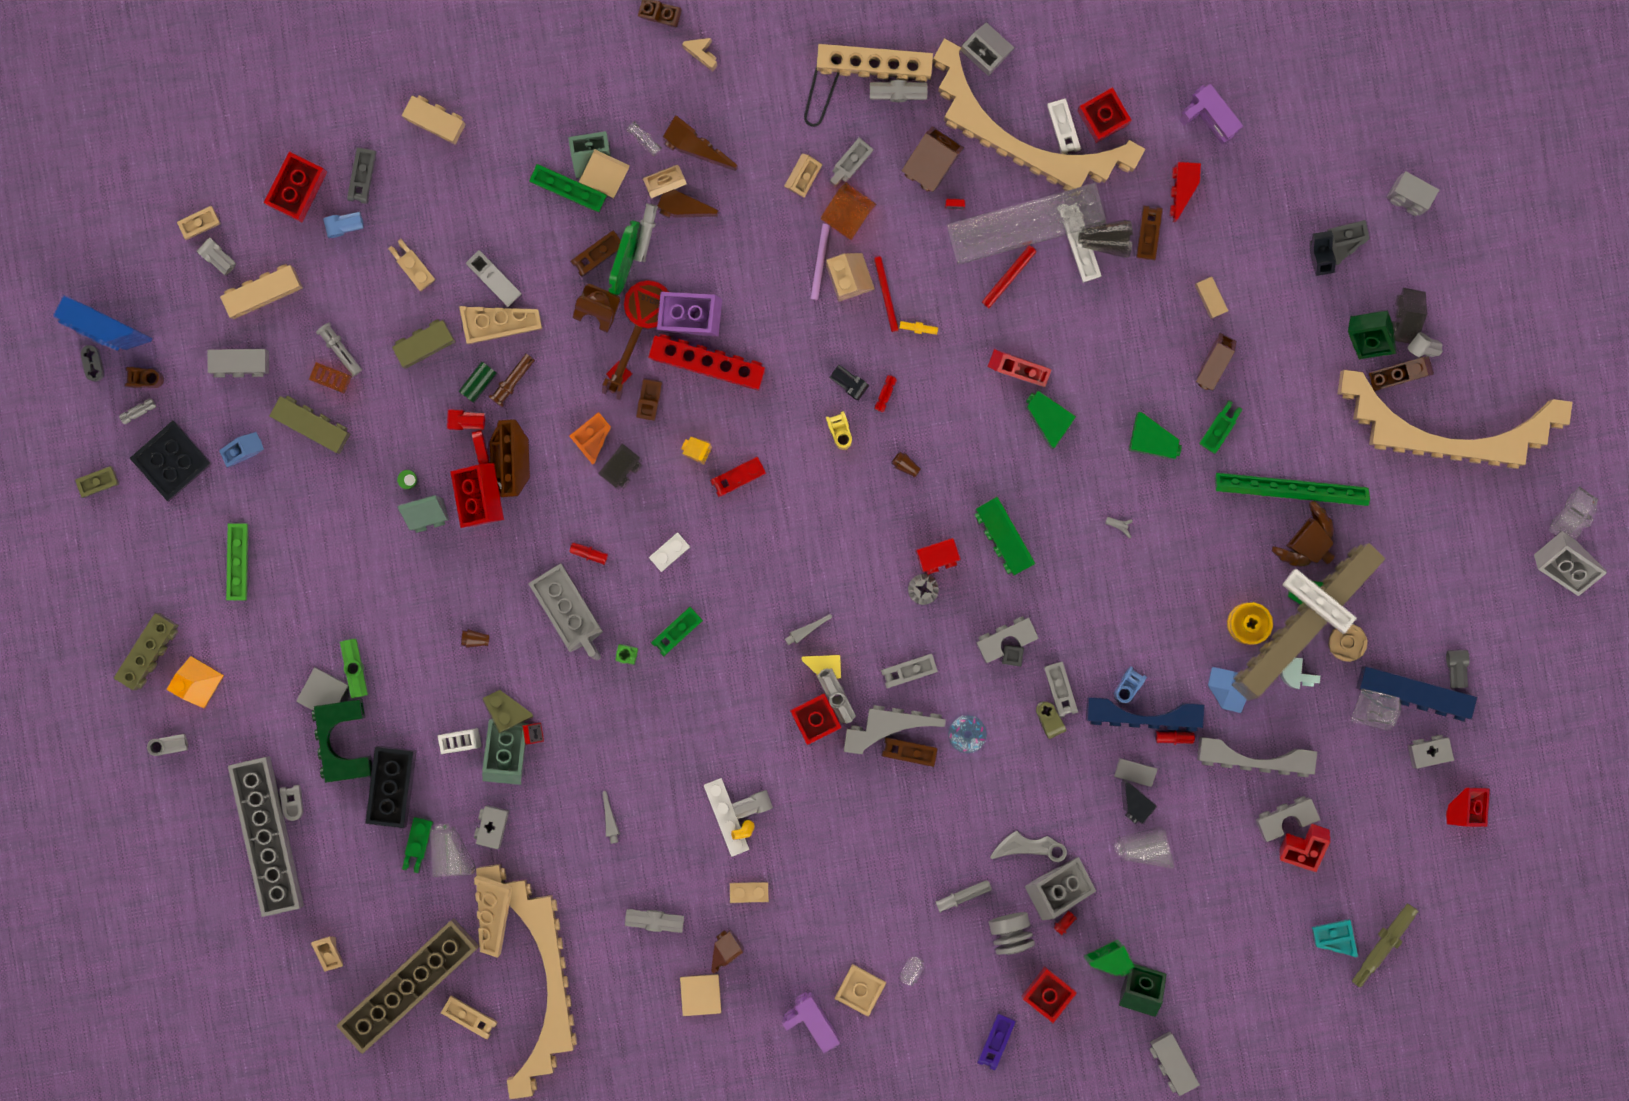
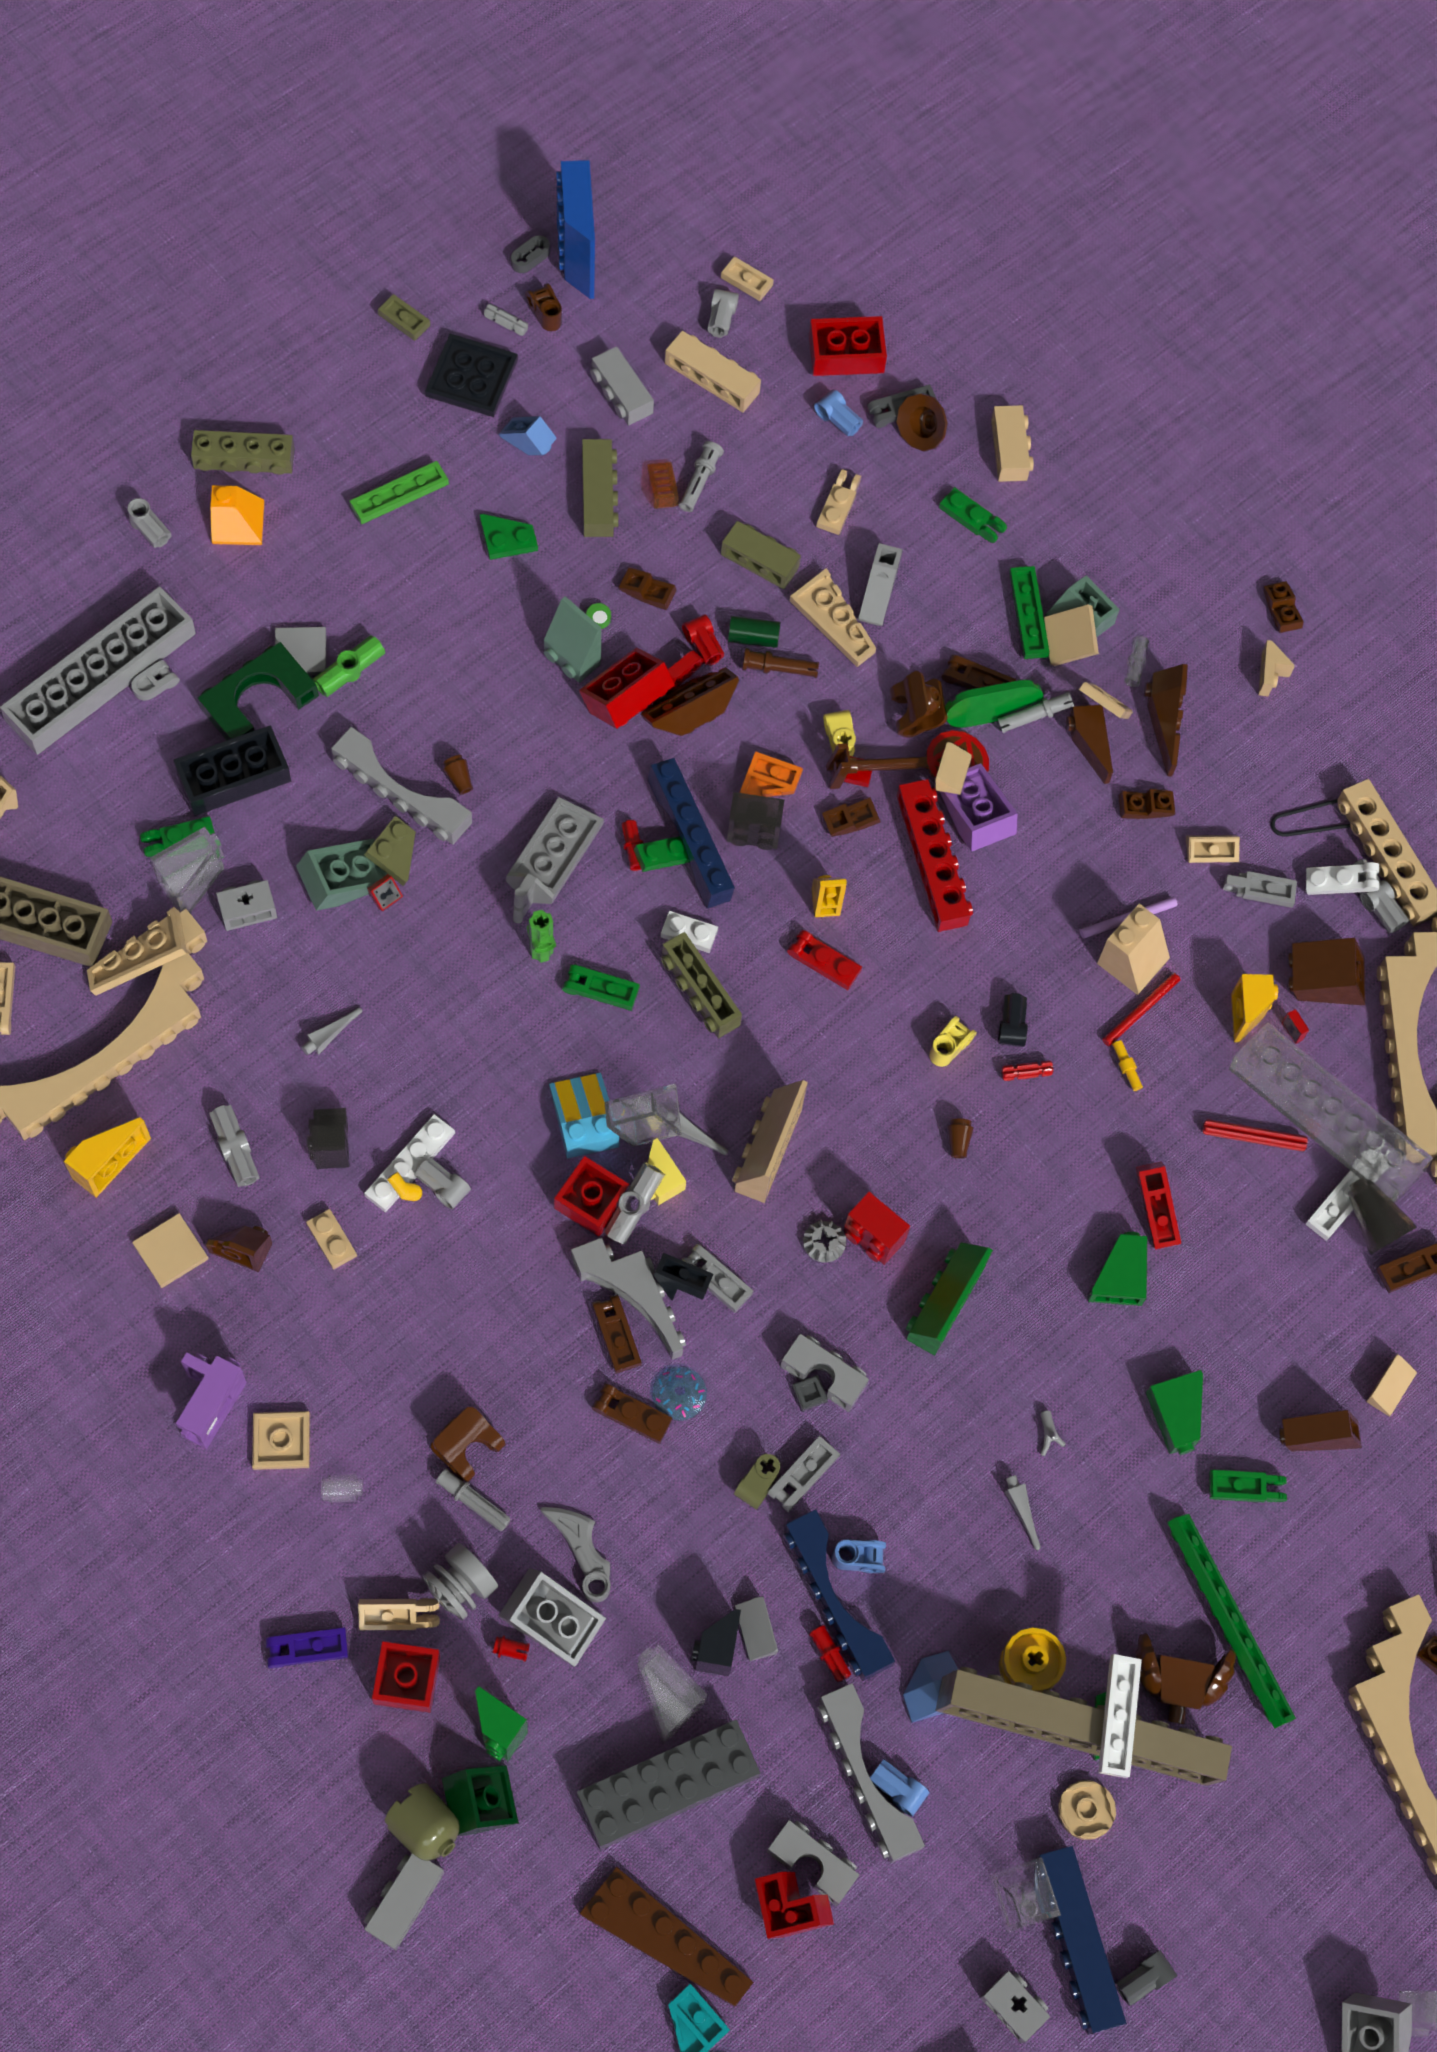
camera: 55 degrees right, 20 degrees down
(311, 507) = (507, 537): none -> green wing
(386, 172) = (922, 422): none -> reddish brown hat
(405, 435) = (646, 589): none -> reddish brown slope
(424, 697) = (442, 815): none -> light grey arch
(471, 180) = (972, 515): none -> green hinge
(471, 733) = (337, 834): white slope -> none
(583, 370) = (840, 729): none -> light yellow piece
(601, 511) = (675, 797): none -> dark blue arch
(608, 533) = (661, 854): none -> green plate
(620, 1010) = (105, 1155): none -> yellow slope
(657, 315) = (952, 769): none -> tan slope
(684, 859) = (329, 1138): none -> clear smoke brick
(714, 568) = (701, 985): none -> olive brick
(749, 198) = (1146, 805): none -> reddish brown slope
(755, 690) = (582, 1115): none -> medium azure slope
(780, 655) = (645, 1115): none -> clear slope
(844, 588) = (770, 1141): none -> tan slope
(848, 210) = (1207, 913): clear orange bracket -> none
(875, 108) = (1342, 879): none -> white plate
(900, 693) = (680, 1275): none -> black slope
(920, 884) = (458, 1434): none -> reddish brown piece
(927, 224) = (1251, 1002): none -> yellow slope
(965, 770) = (632, 1414): none -> reddish brown plate
(1007, 978) = (397, 1614): none -> tan hinge
(1141, 1031) = (423, 1823): none -> olive cylinder
(1150, 569) = (1019, 1499): none -> light grey piece
(1196, 877) = (668, 1784): none -> dark grey brick
(1269, 931) = (646, 1925): none -> reddish brown wing
(1278, 742) = (904, 1791): none -> medium blue piece
(1292, 675) = (1001, 1757): light aqua brick -> none

